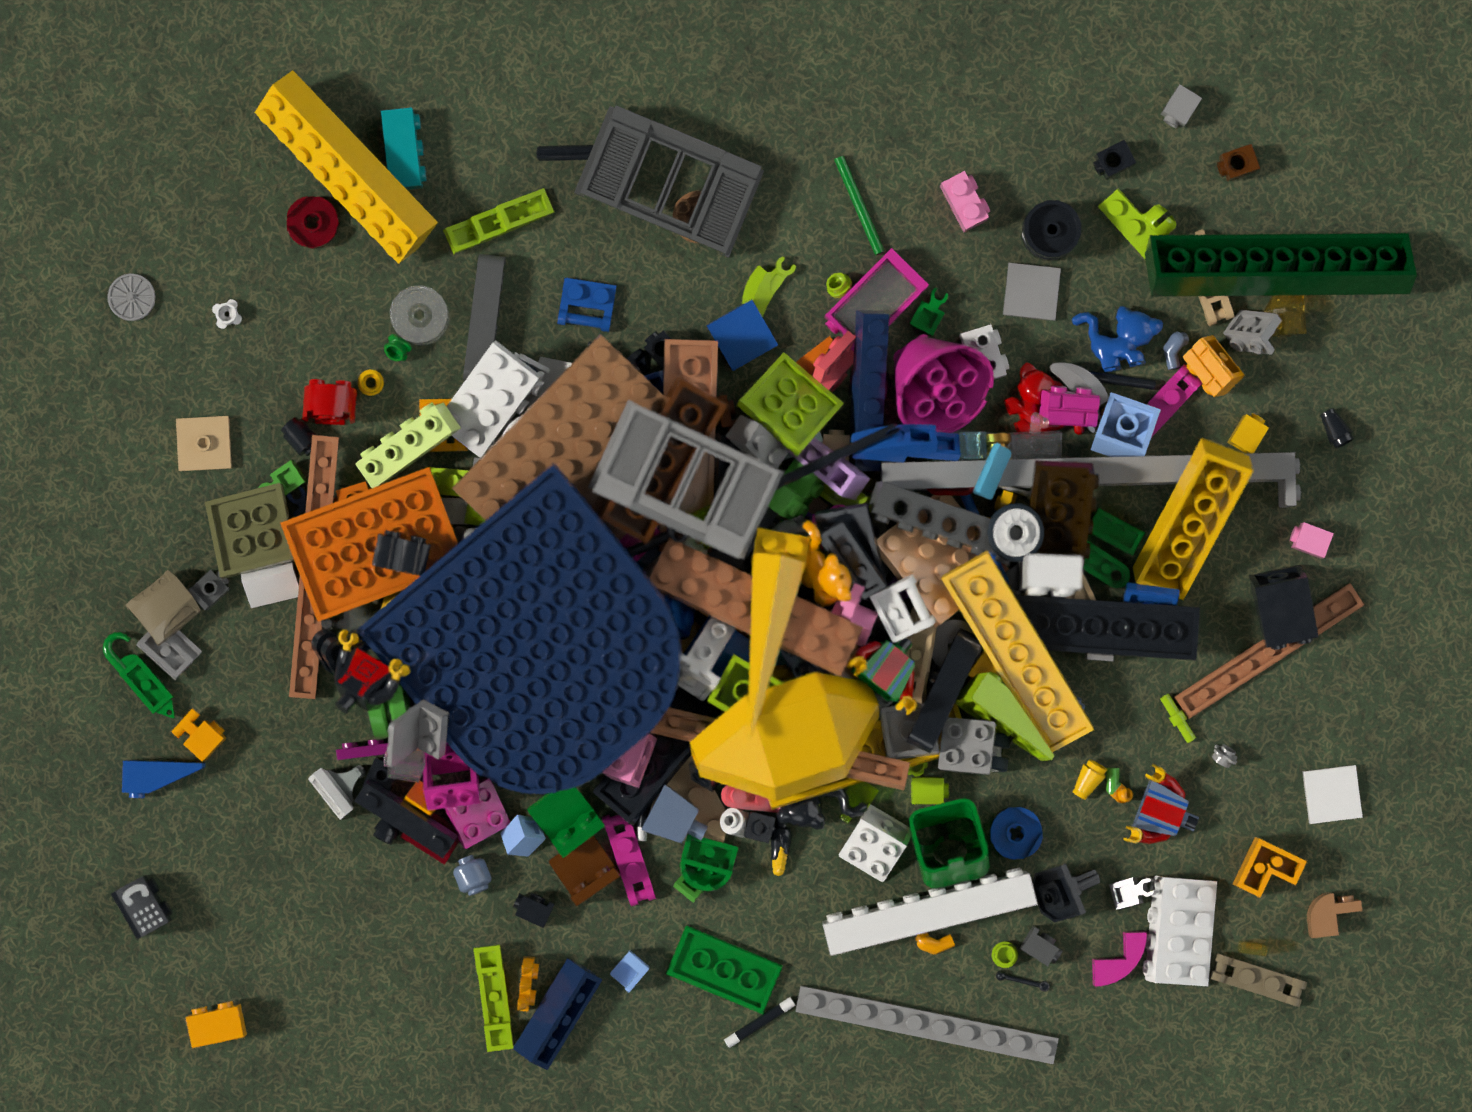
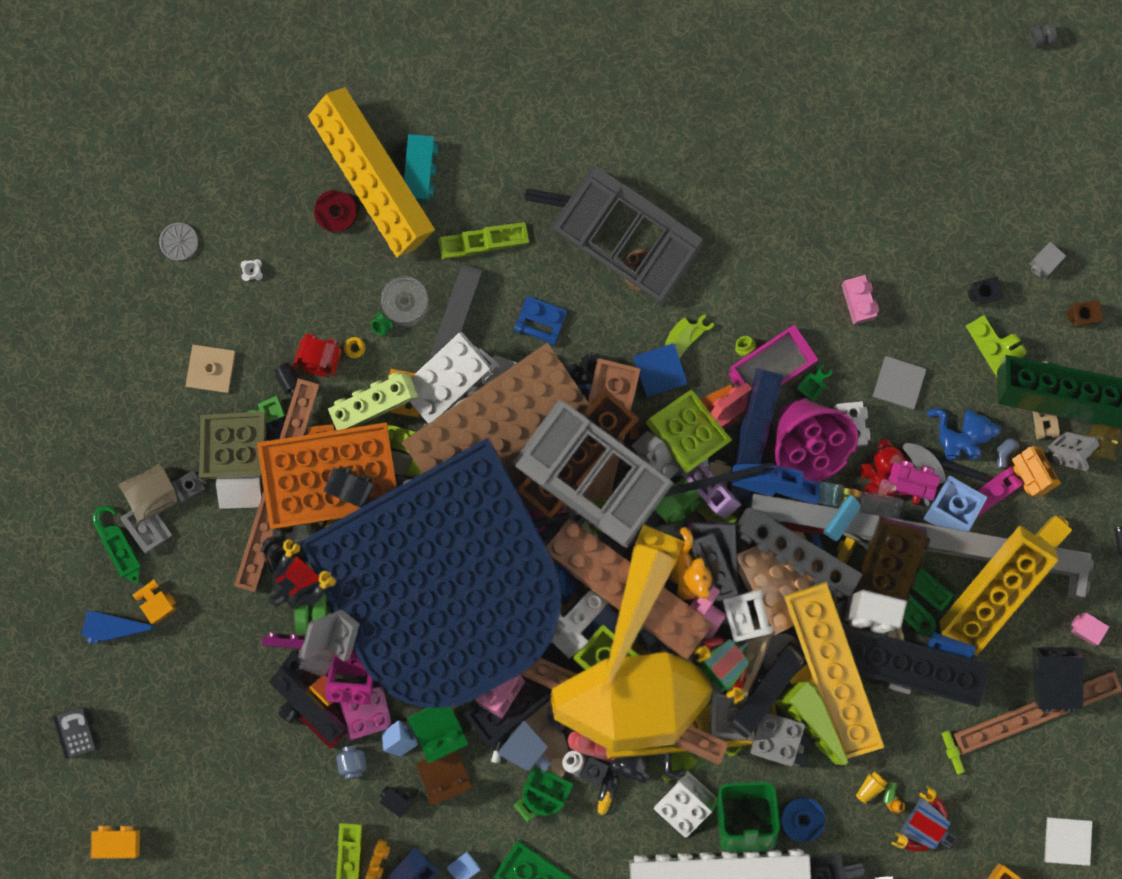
camera: 15 degrees right, 5 degrees down
(337, 788) = (257, 668): white piece -> none
(629, 859) = (482, 776): dark pink plate -> none
(859, 205) = (774, 286): green bar -> none
(929, 790) = (738, 769): lime brick -> none
(999, 529) = (838, 571): white wheel -> none
(1051, 246) = (927, 324): black wheel -> none
(1224, 755) = (986, 791): light grey plate -> none

